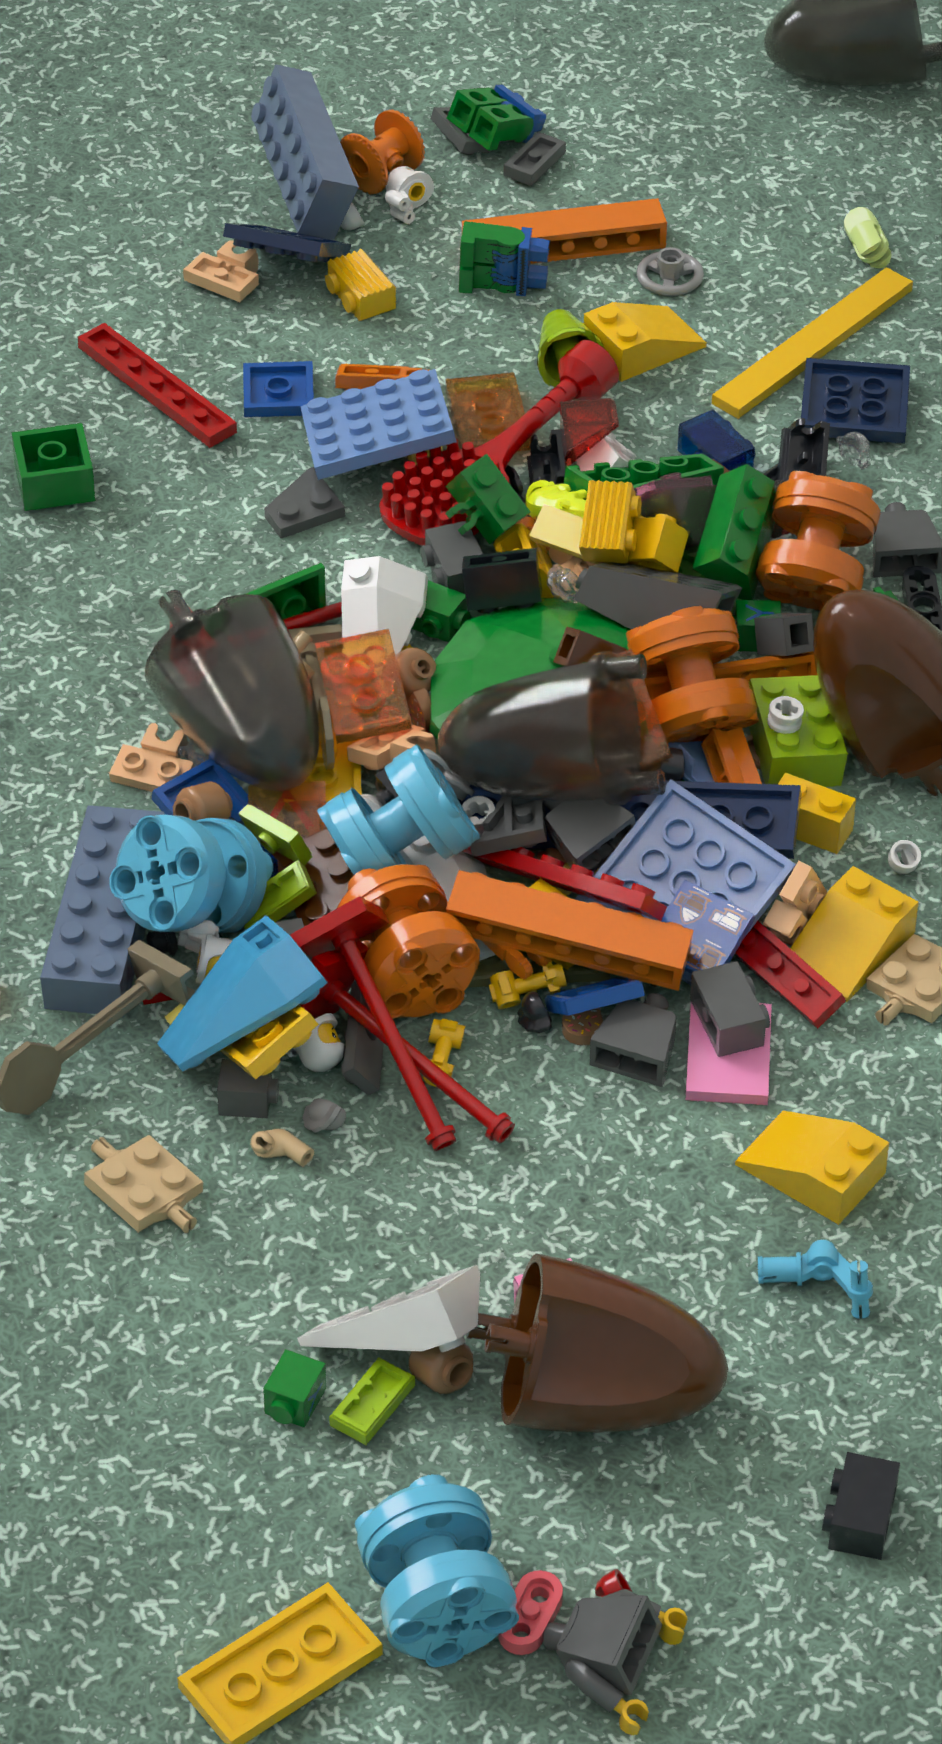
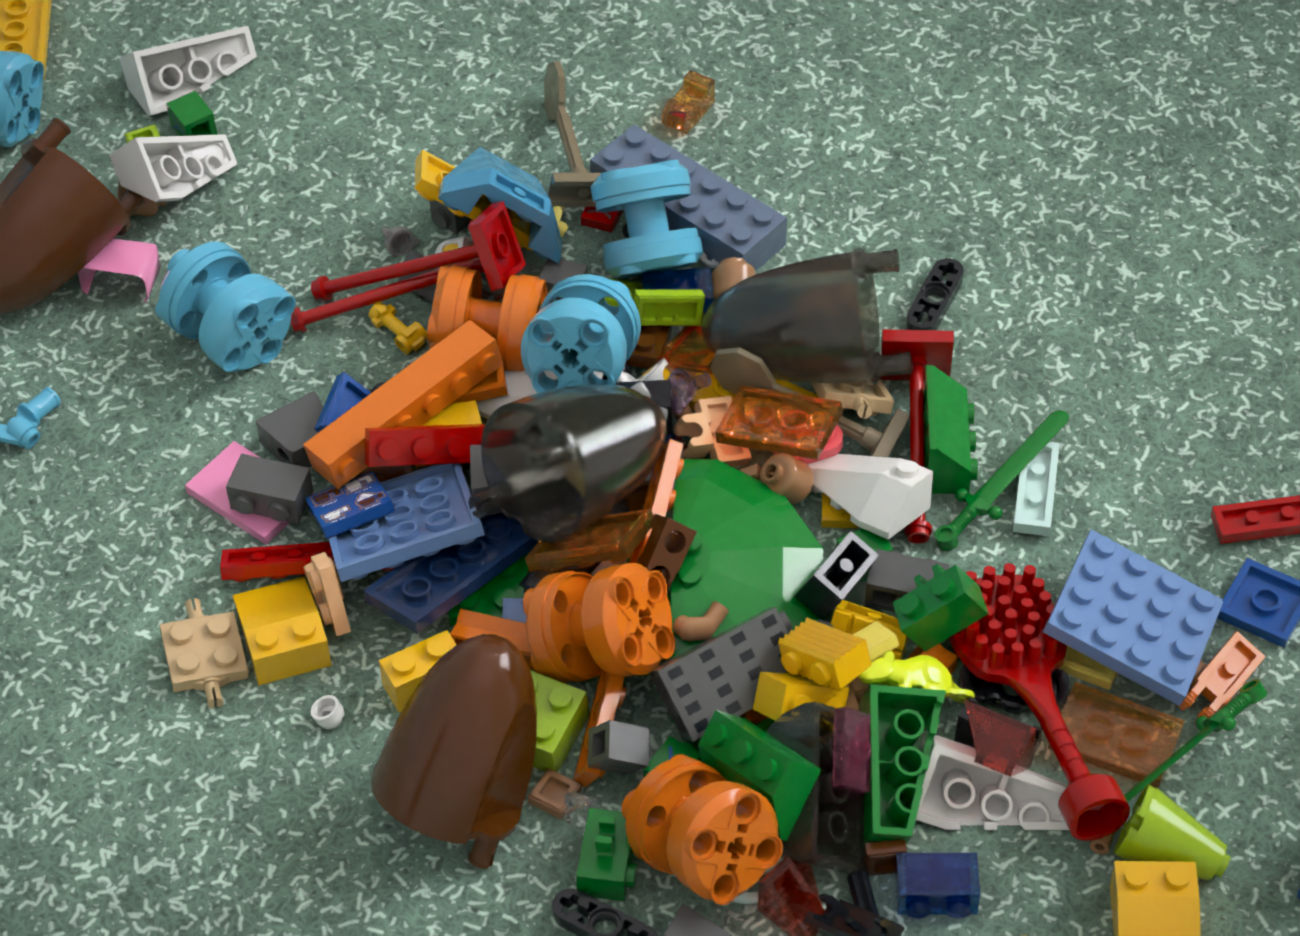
camera: 125 degrees right, 5 degrees up
(53, 466) = (1233, 378): green brick -> none
(75, 691) = (934, 285): none -> black beam
(143, 1183) = (427, 125): tan plate -> none
(206, 942) = (587, 239): white piece -> none
(243, 1464) = (184, 66): none -> white wedge
(257, 559) = (980, 503): none -> green sword
(270, 547) = (1036, 493): none -> light aqua plate
(281, 1143) = (397, 210): tan arm -> none
(303, 506) = (1070, 531): dark grey wing -> none
(361, 780) = (685, 388): none -> animal
(473, 358) = (1223, 719): none -> green sword
(557, 1150) = (225, 306): none -> medium azure piece
(619, 624) = (700, 627): none -> medium nougat arm
(818, 1161) = (104, 475): yellow slope -> none

